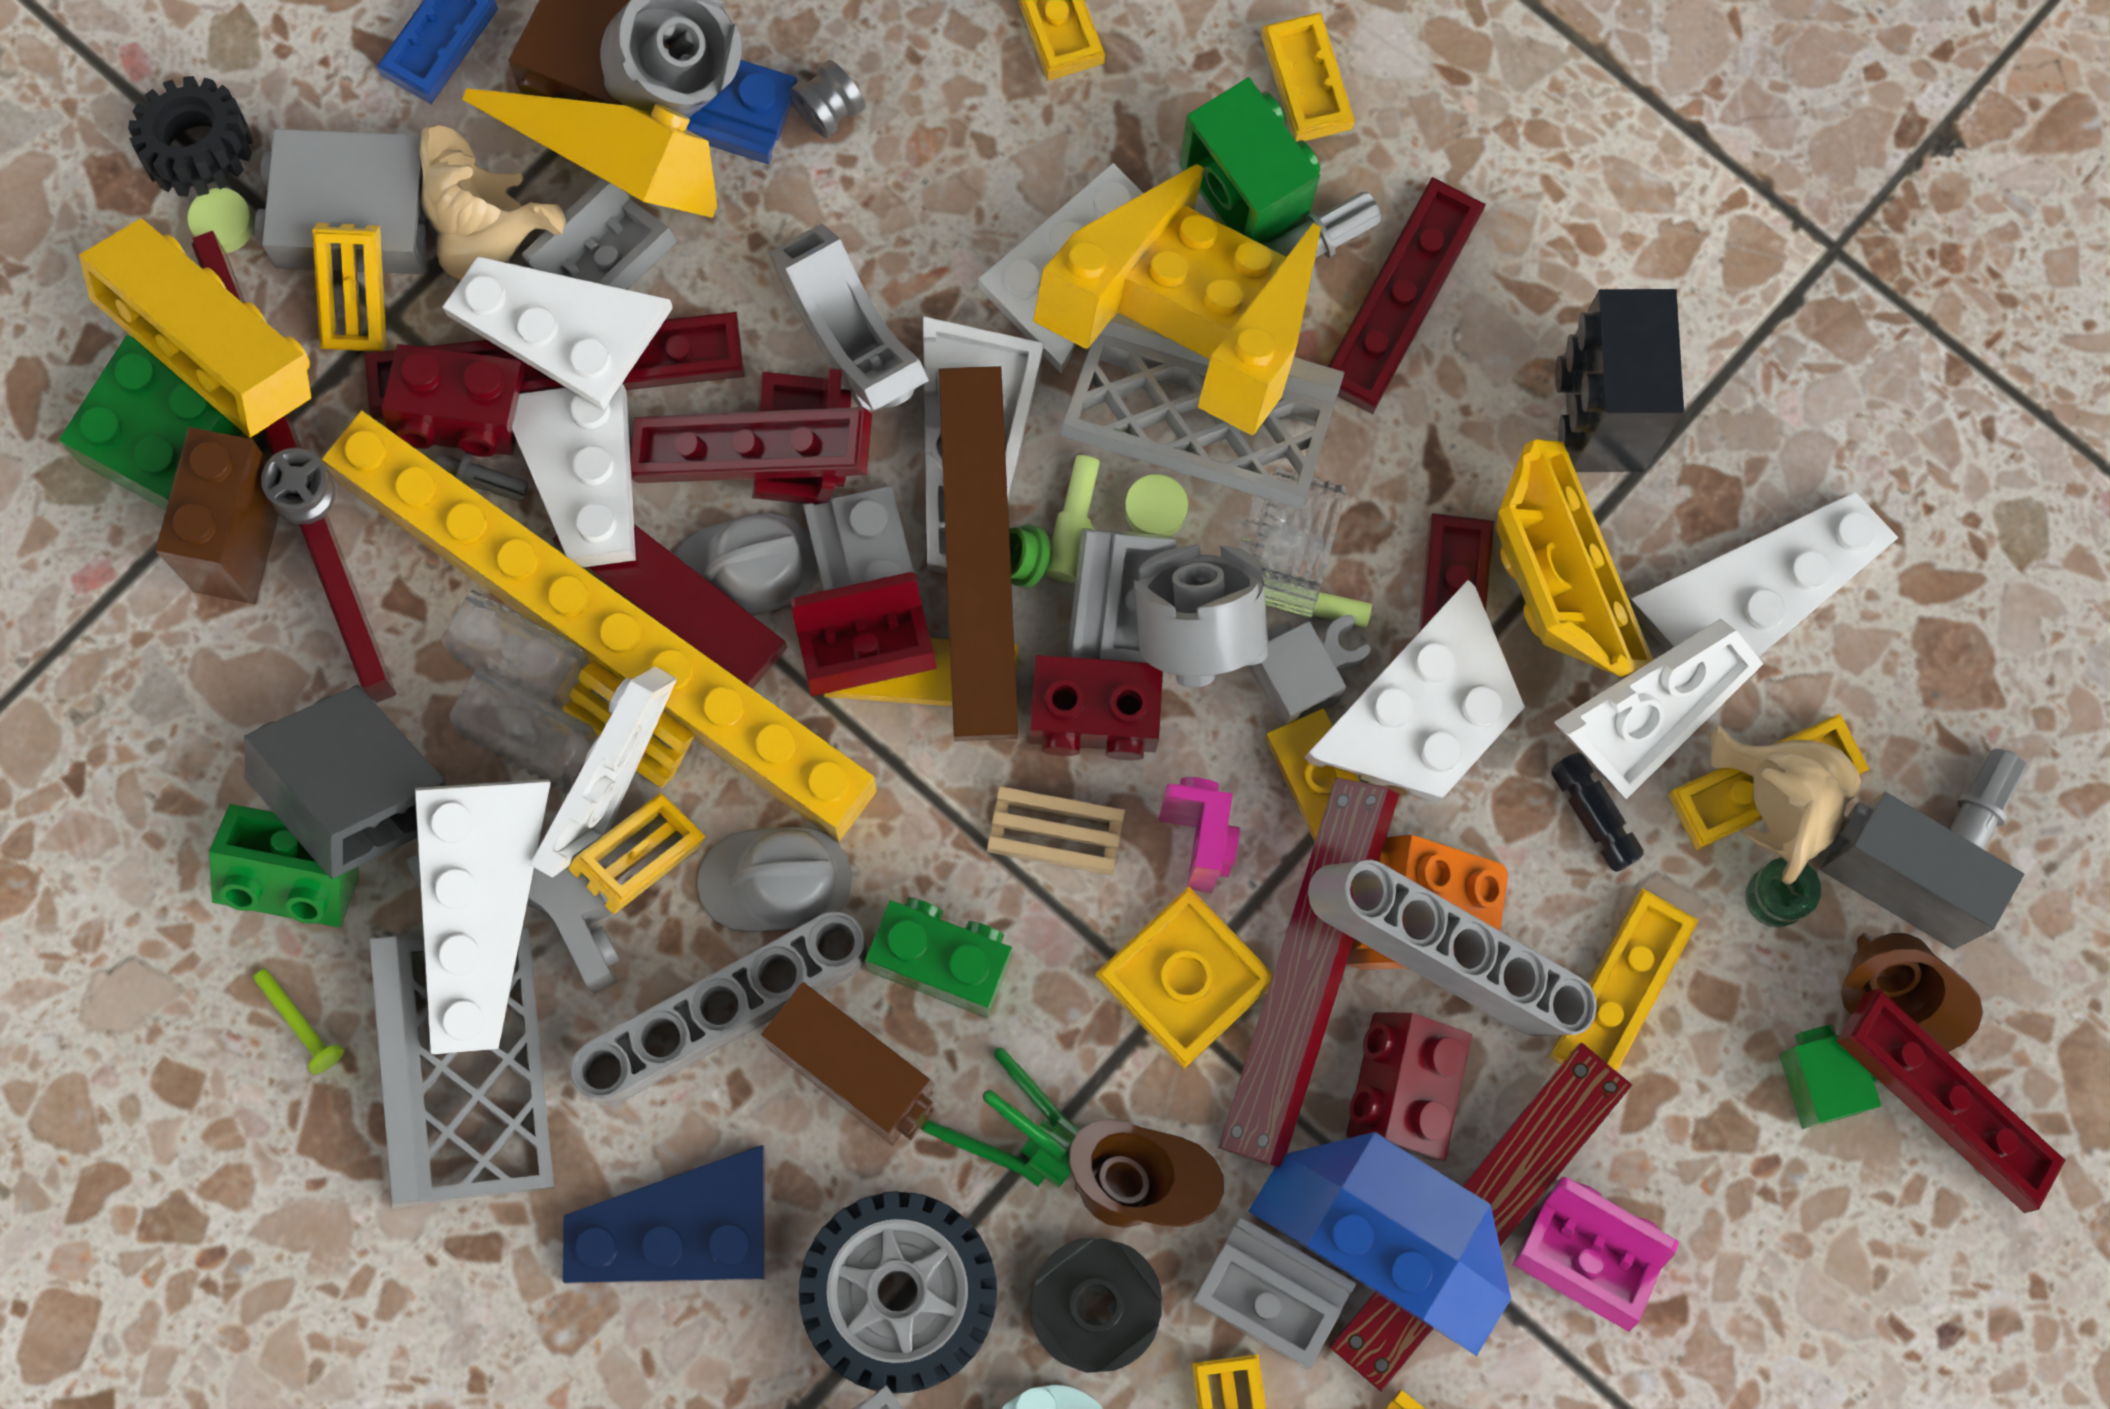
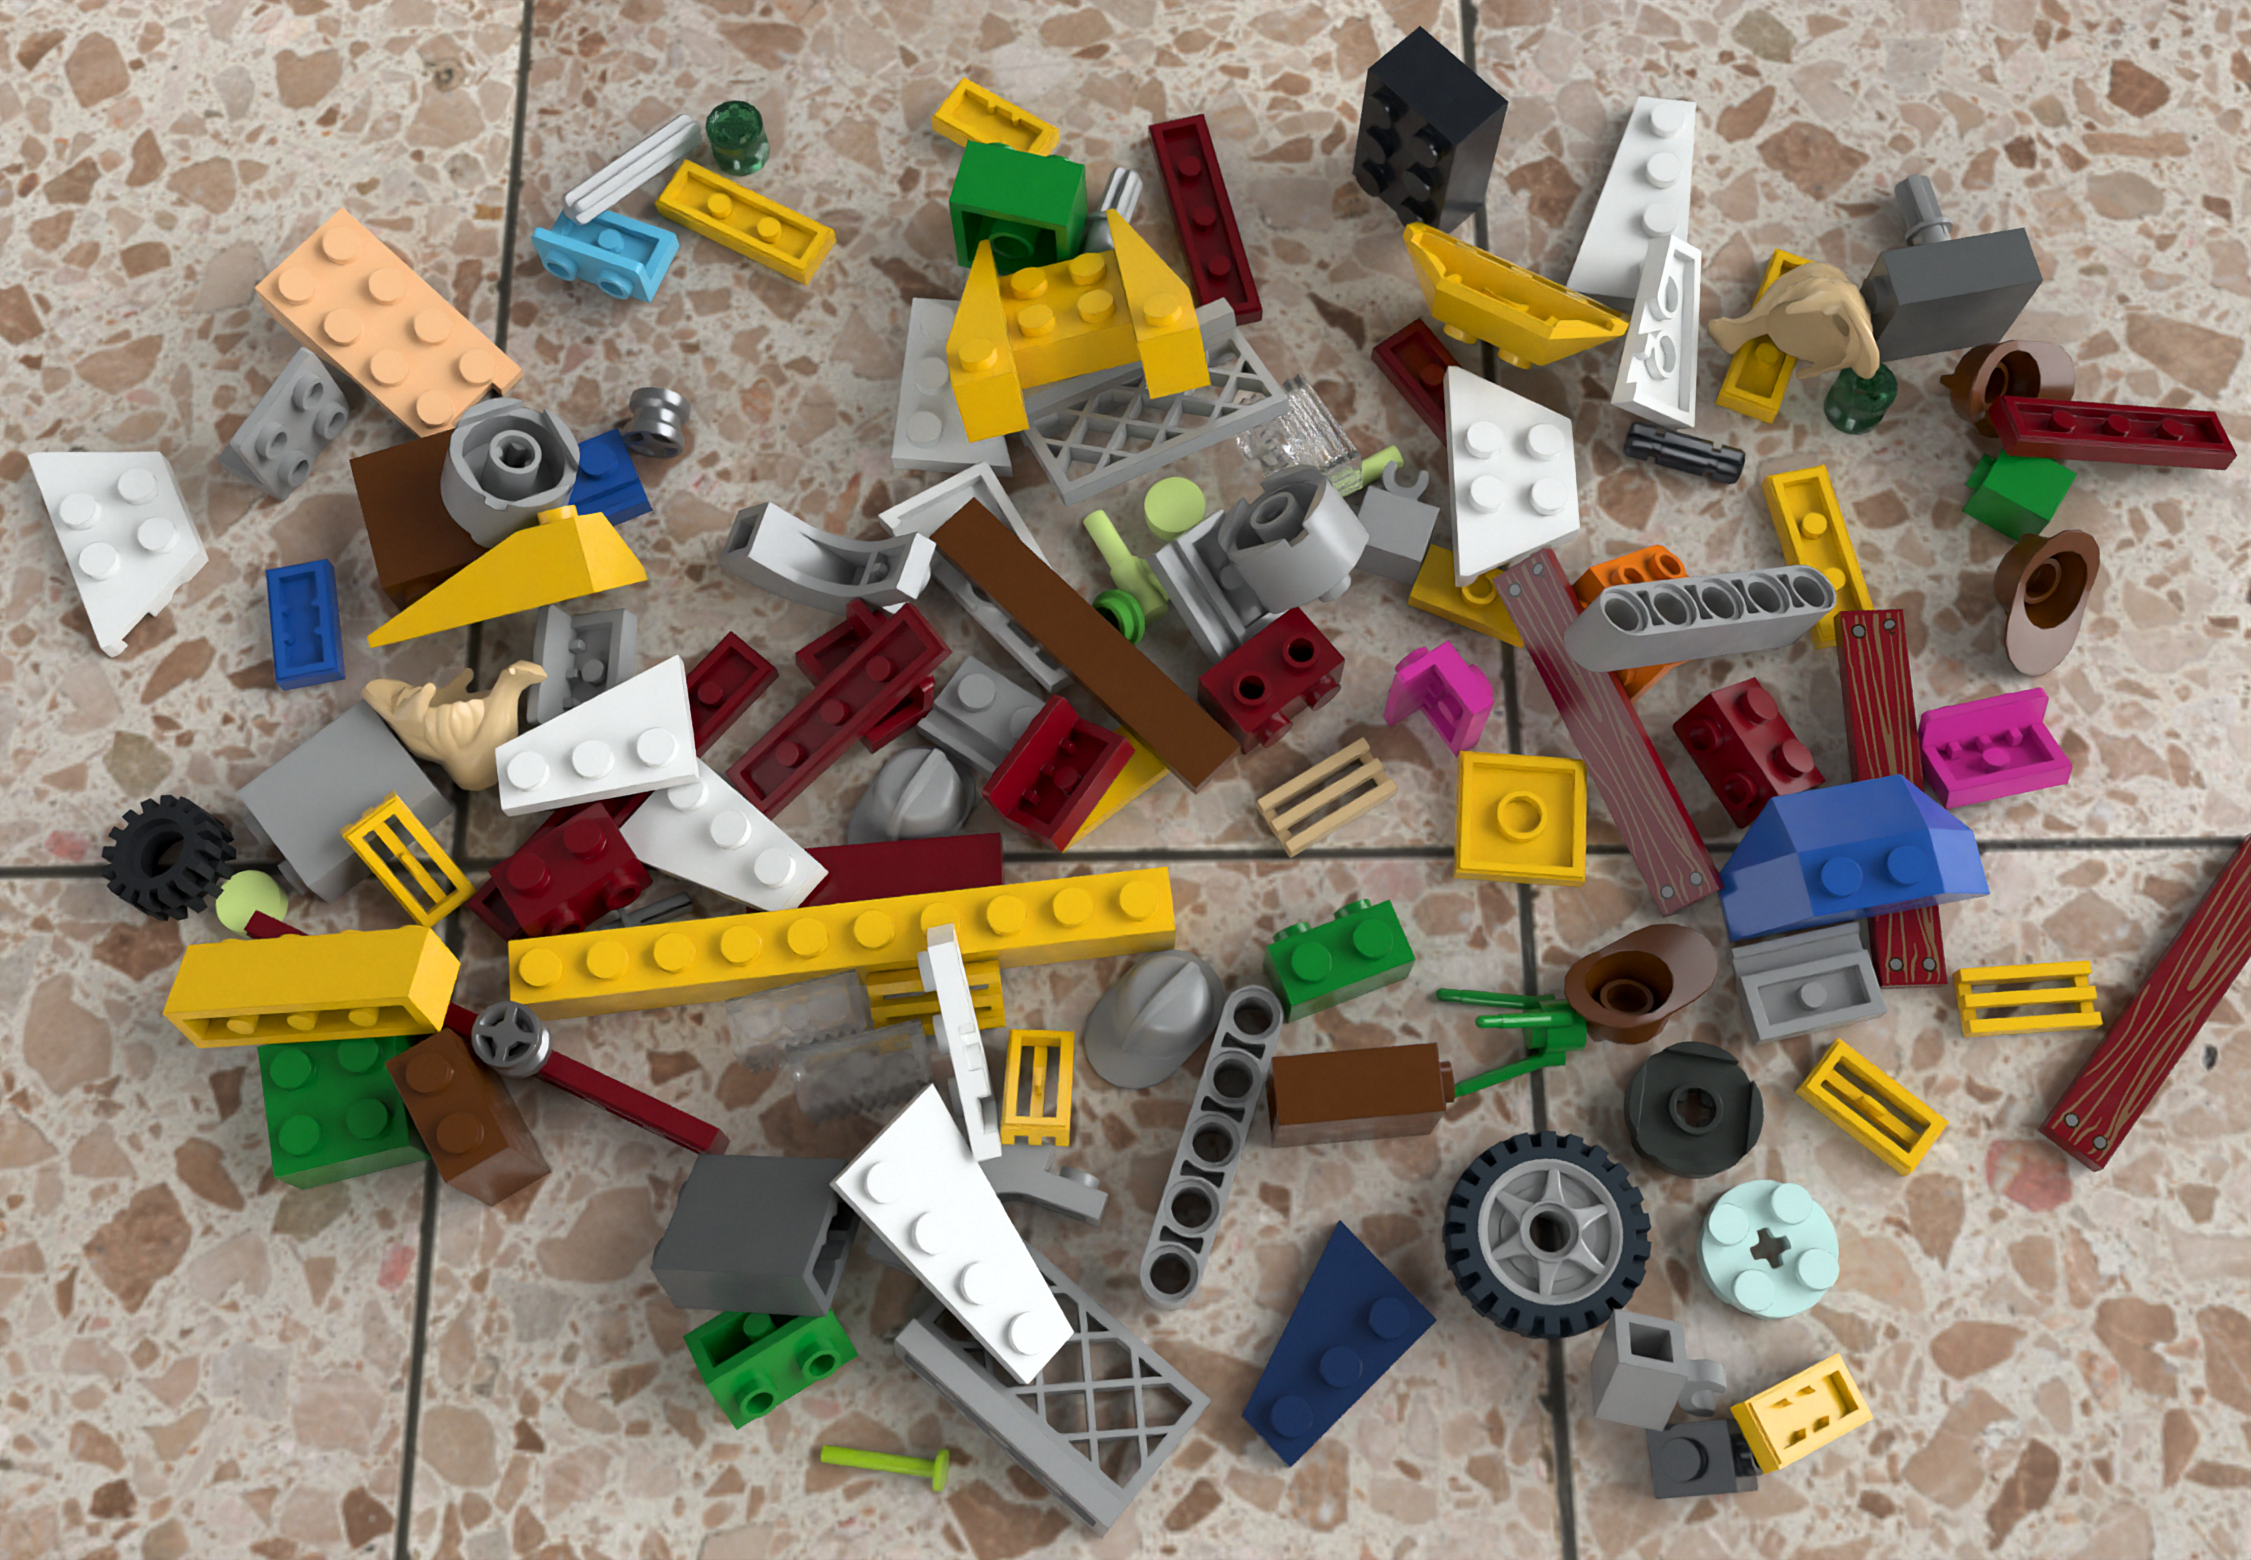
camera: 35 degrees left, 5 degrees down
(1758, 1179) = (2044, 596): none -> reddish brown piece

